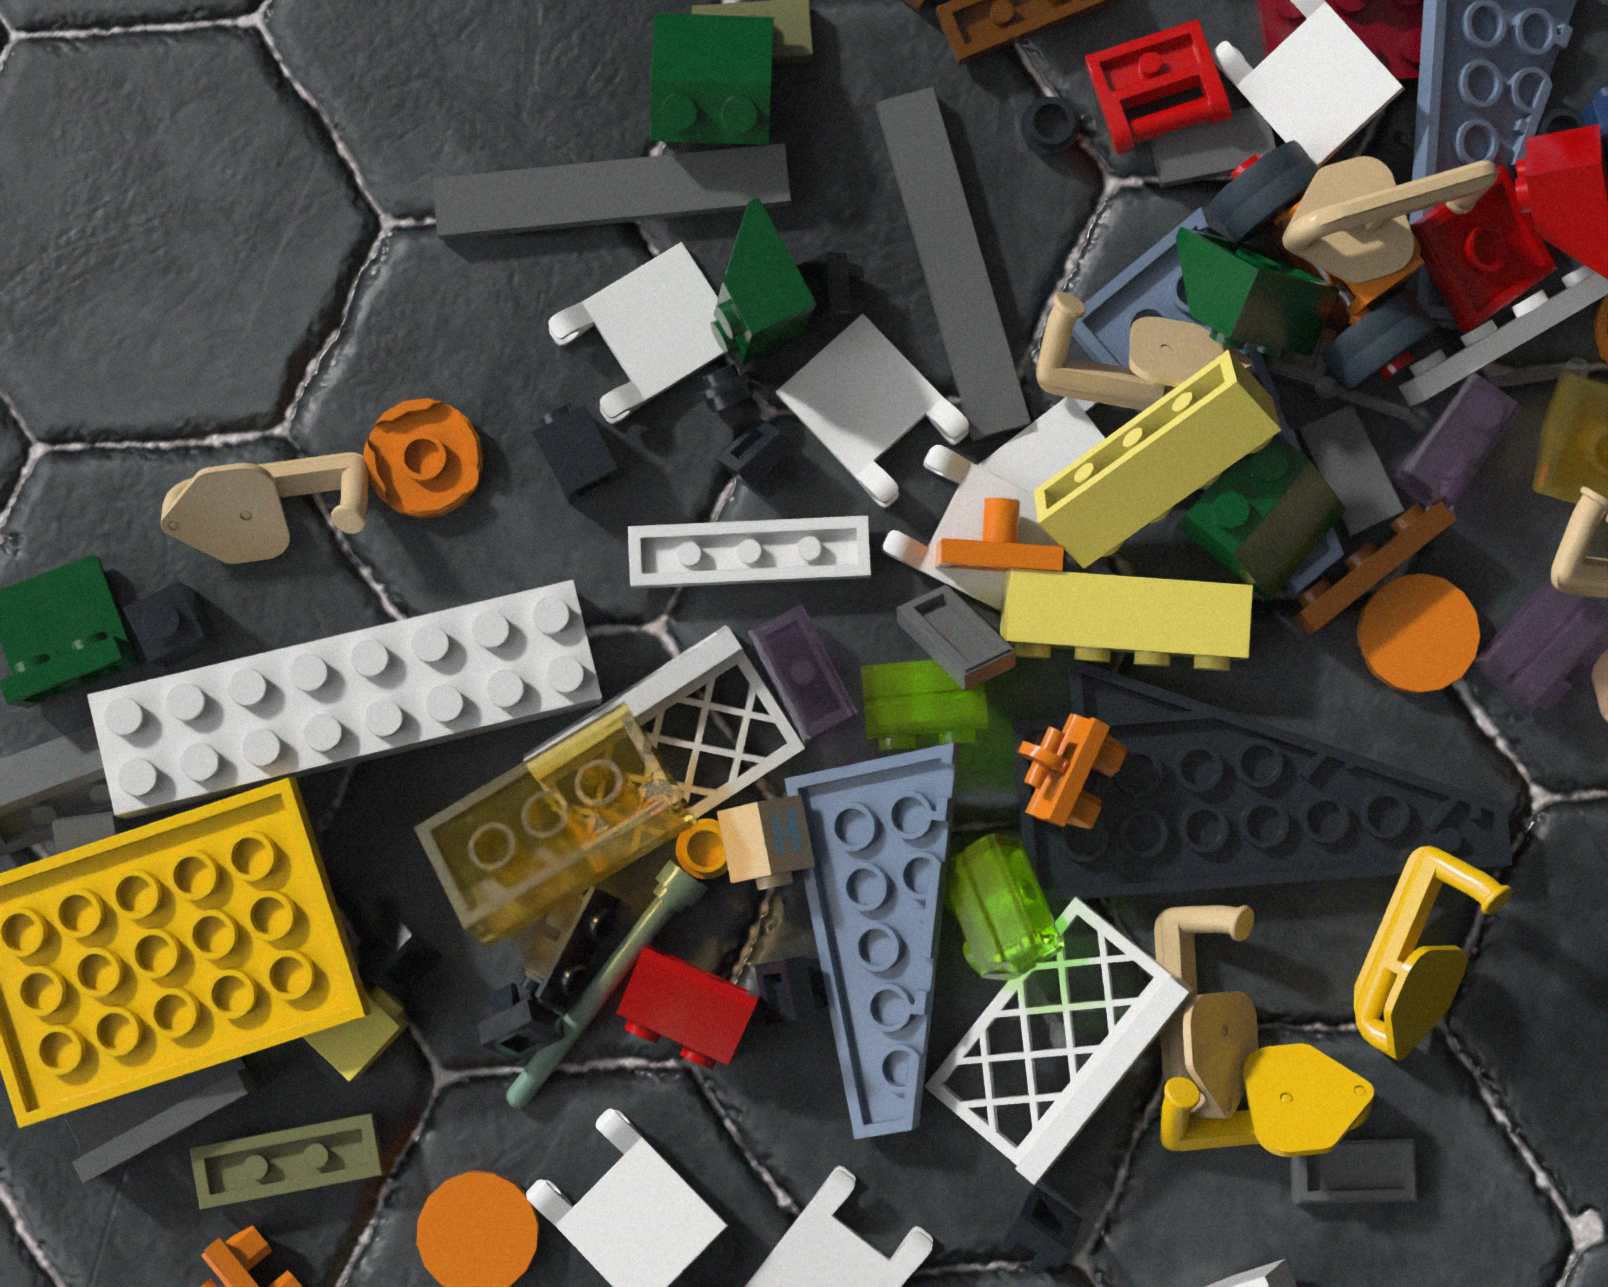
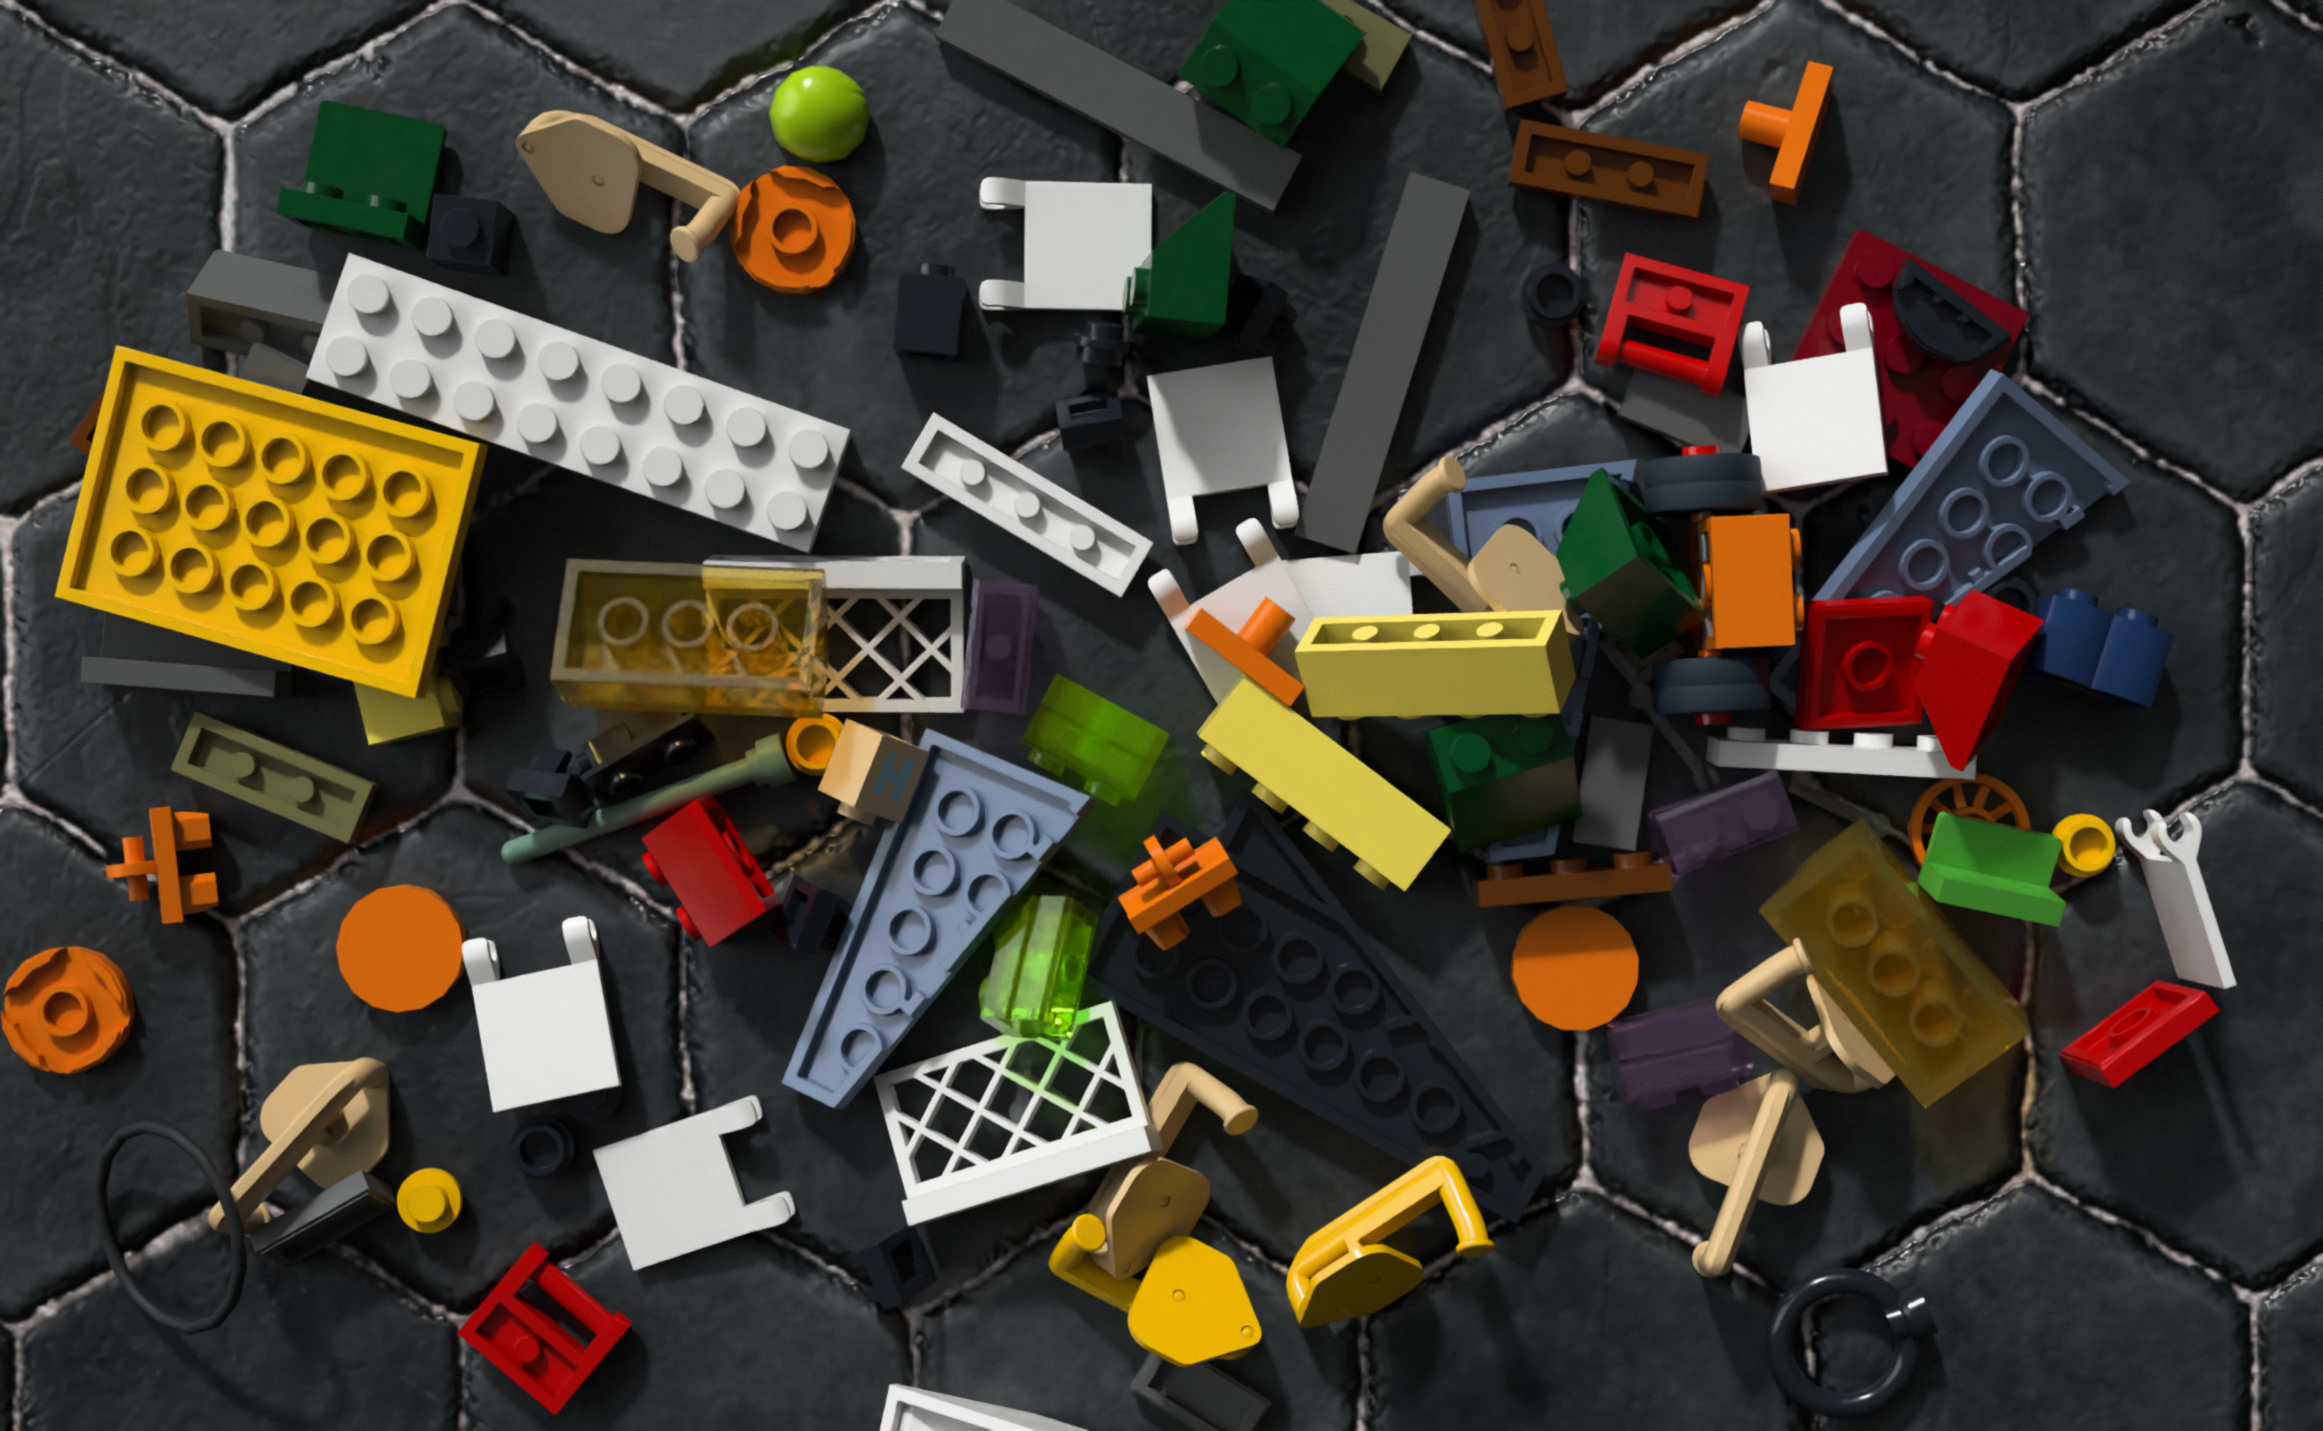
camera: 35 degrees right, 5 degrees up
(386, 355) = (819, 114): none -> lime hair
(956, 637) = (1158, 703): dark grey tile -> none
(1357, 217) = (1762, 564): tan piece -> none

